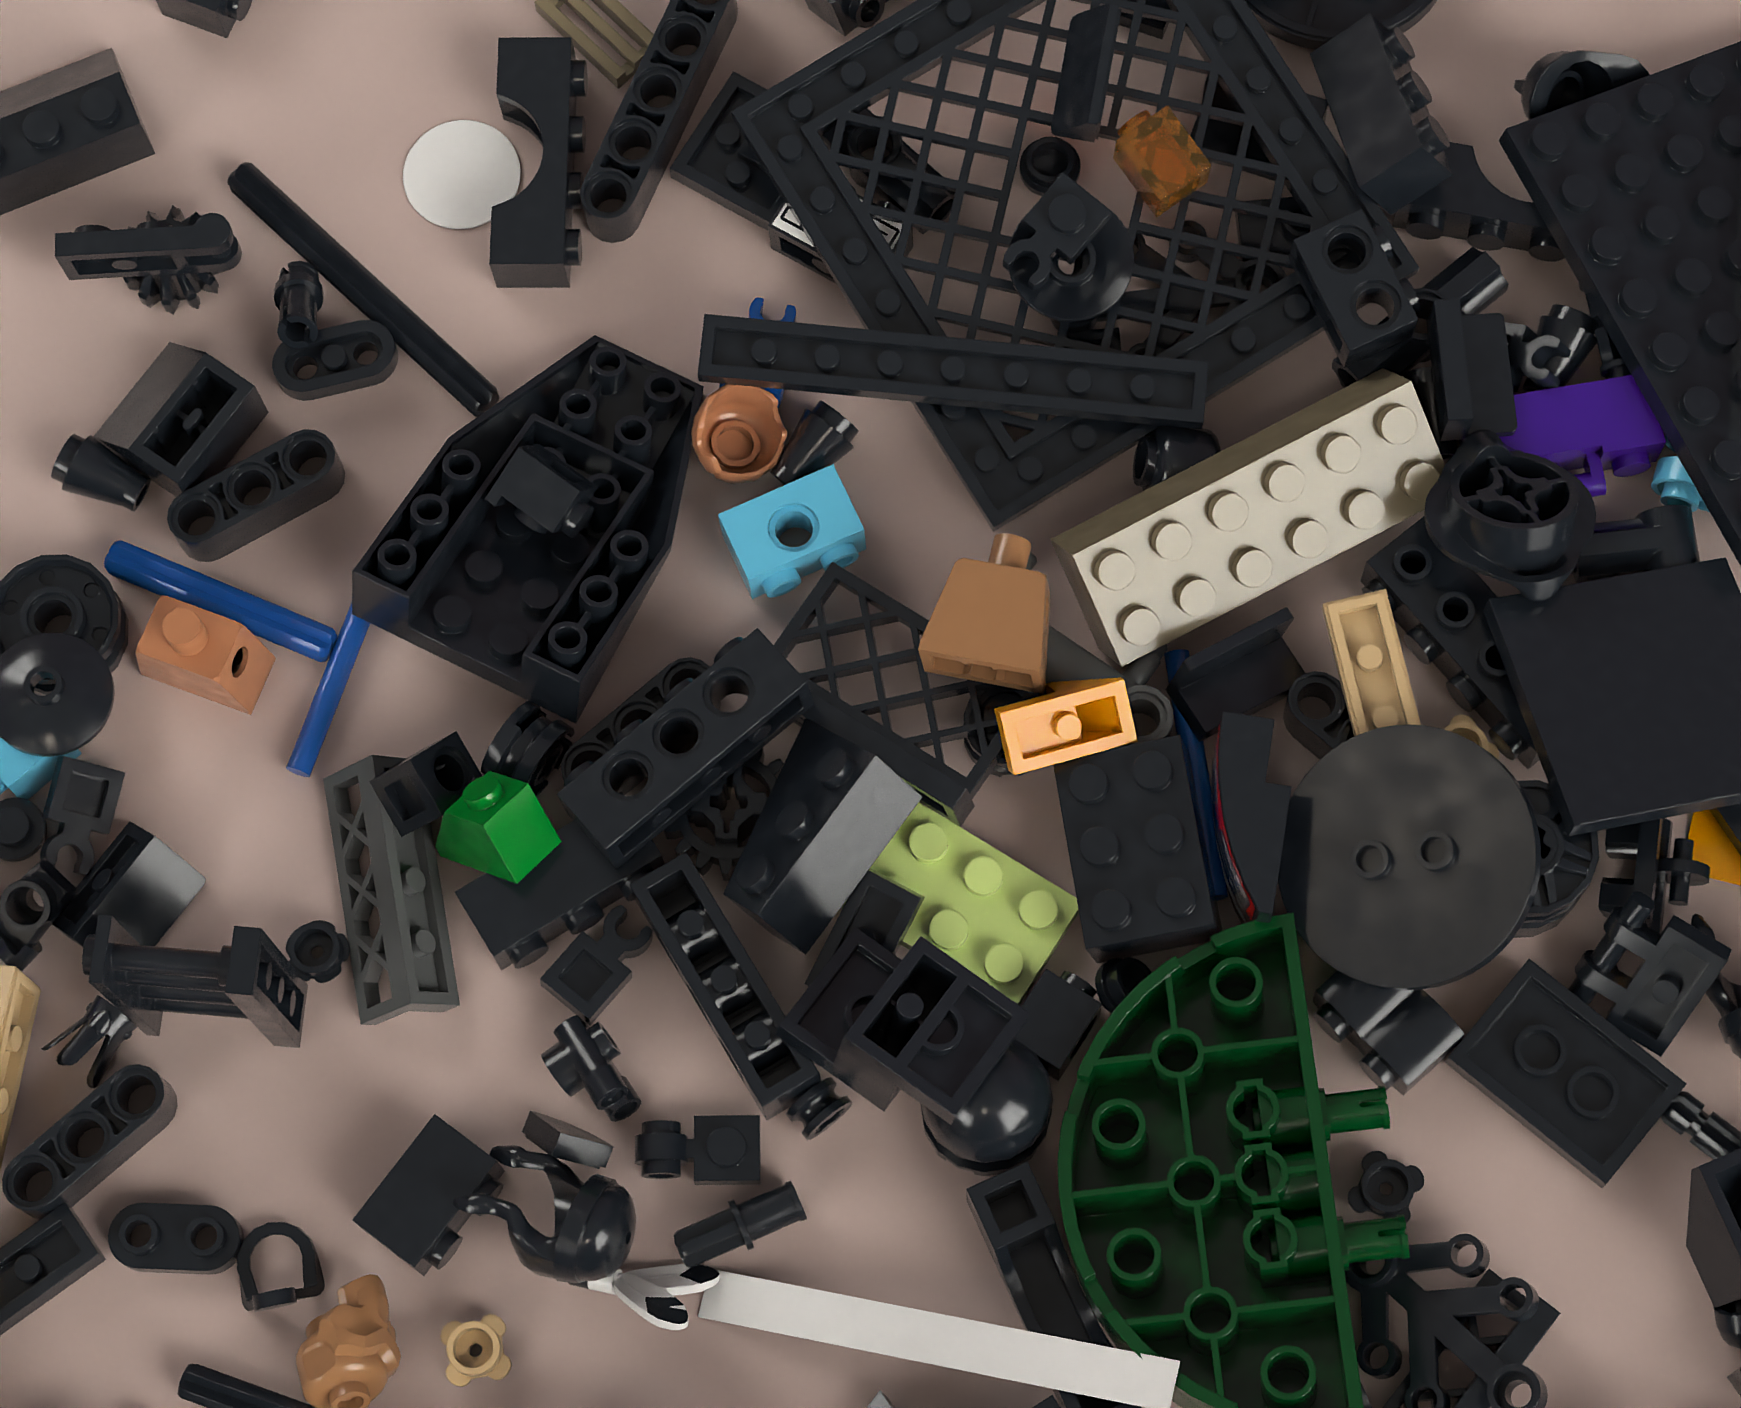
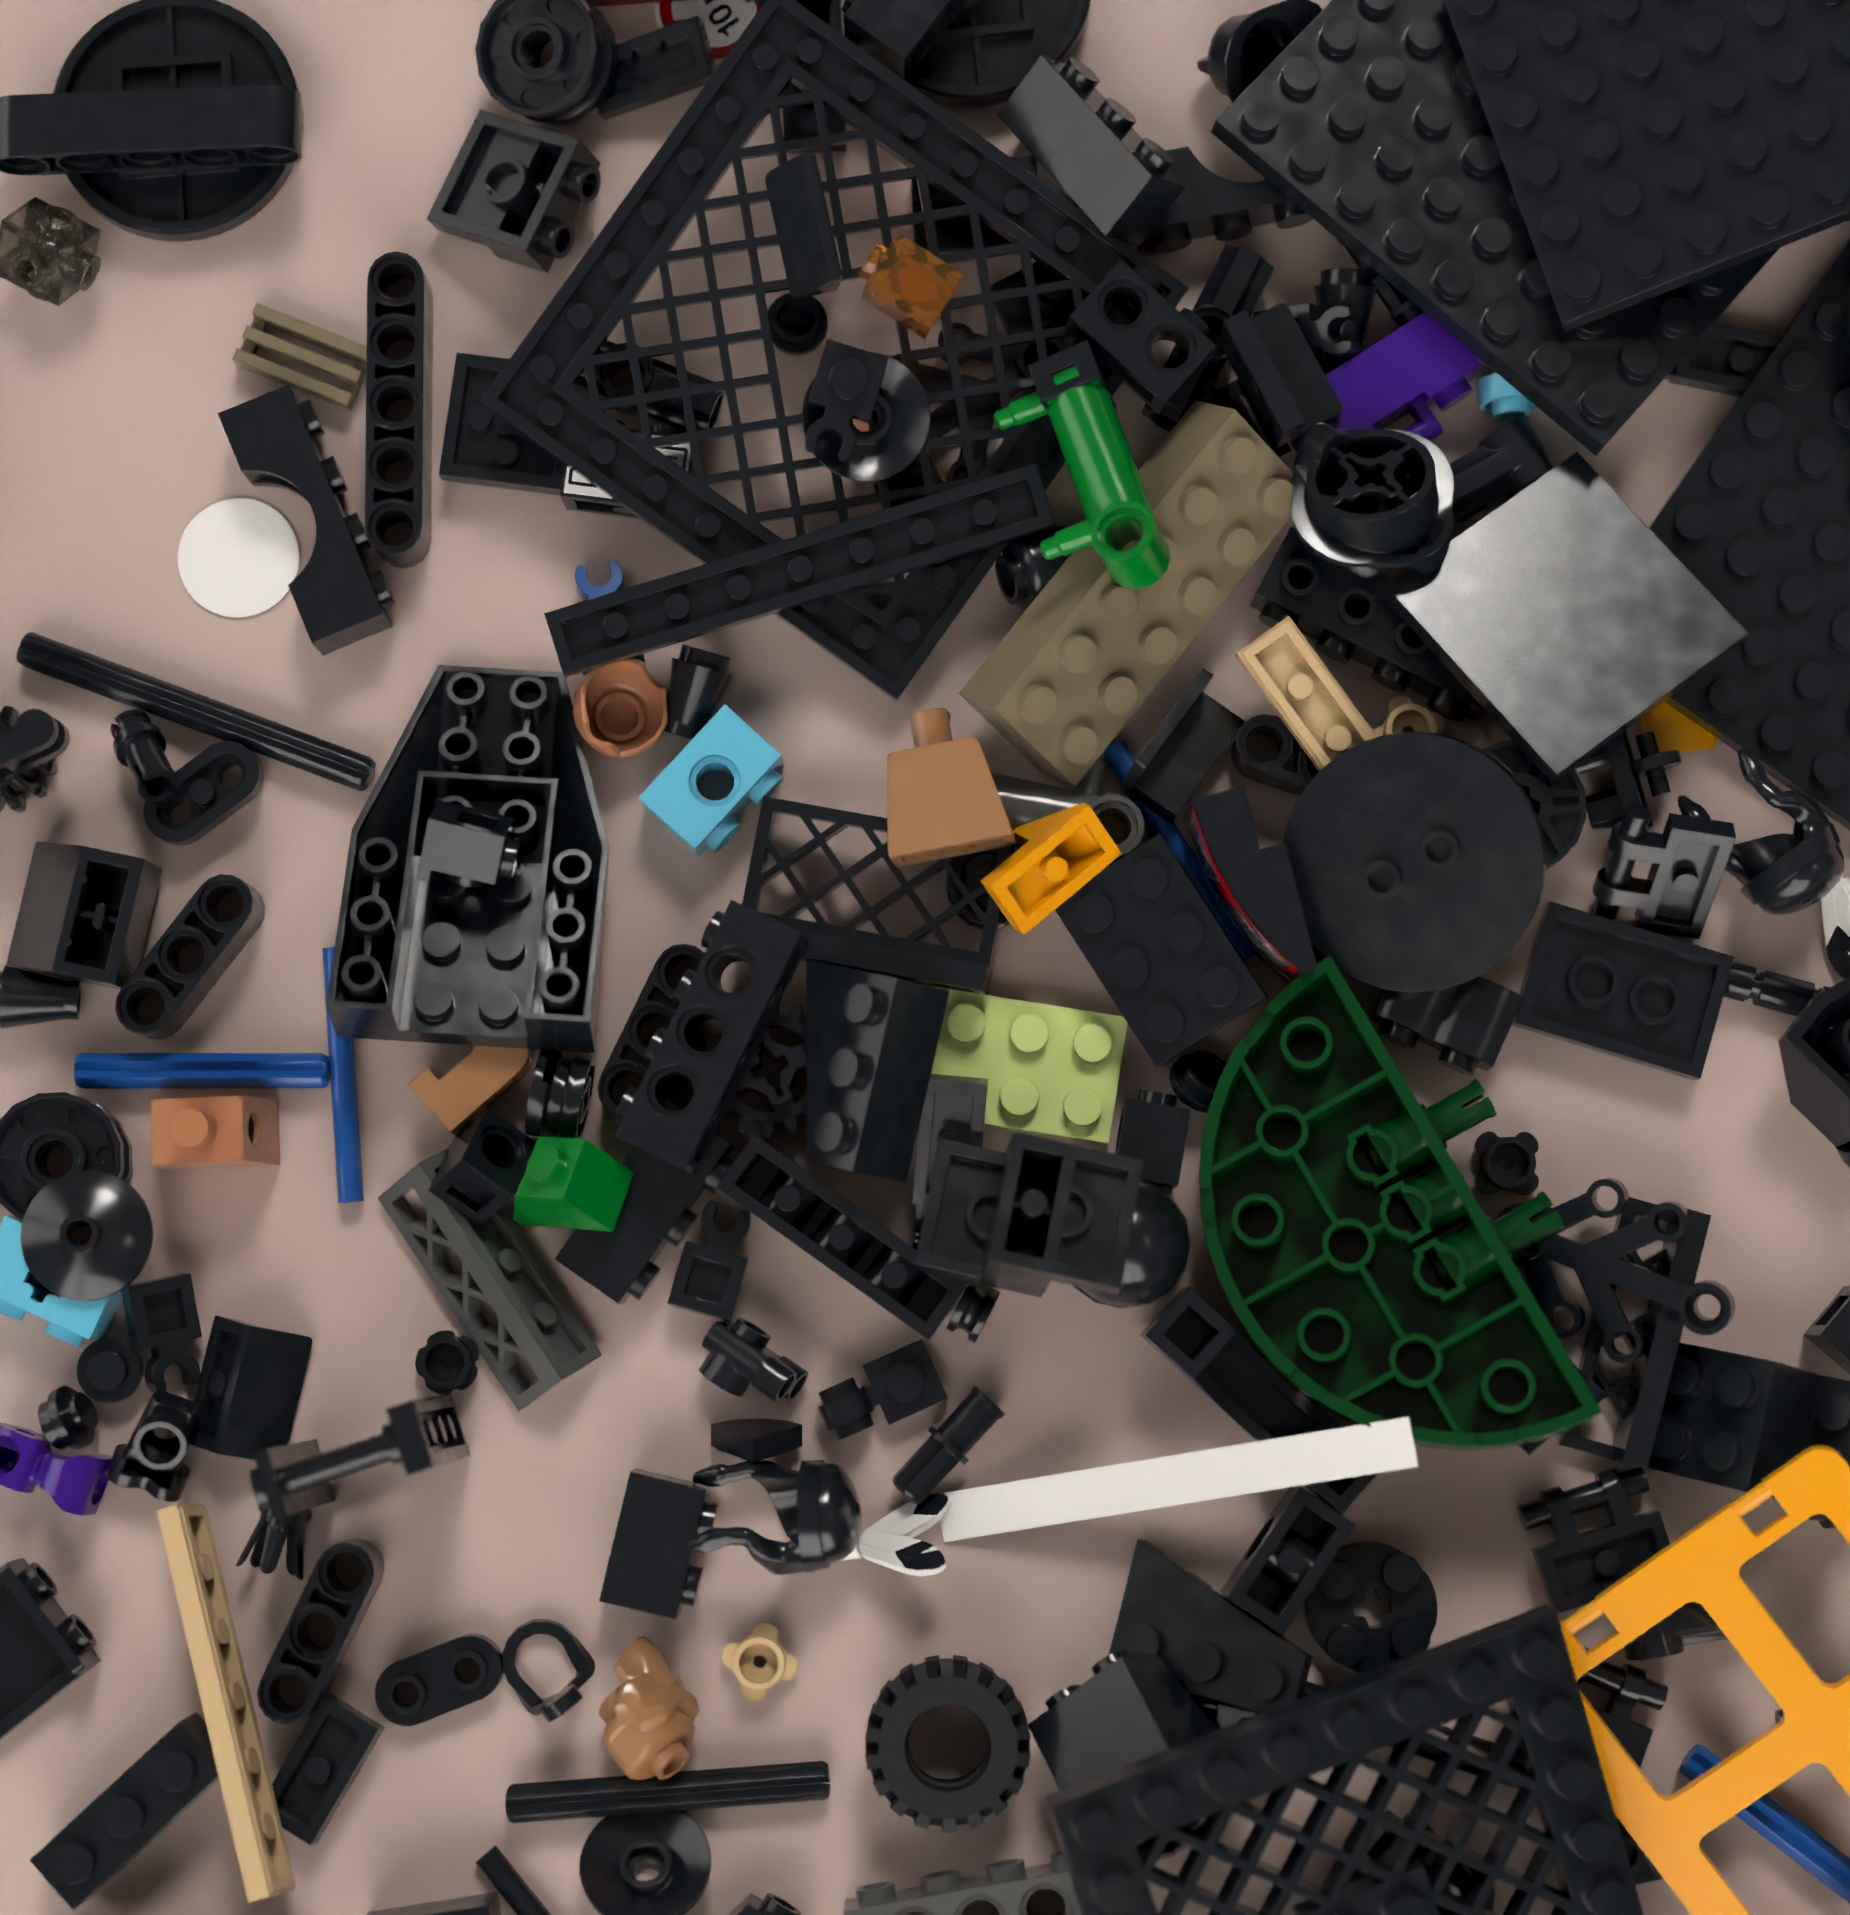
camera: 30 degrees left, 10 degrees up
(465, 706) = (472, 1084): none -> medium nougat leg
(1260, 429) = (1100, 465): none -> green piece

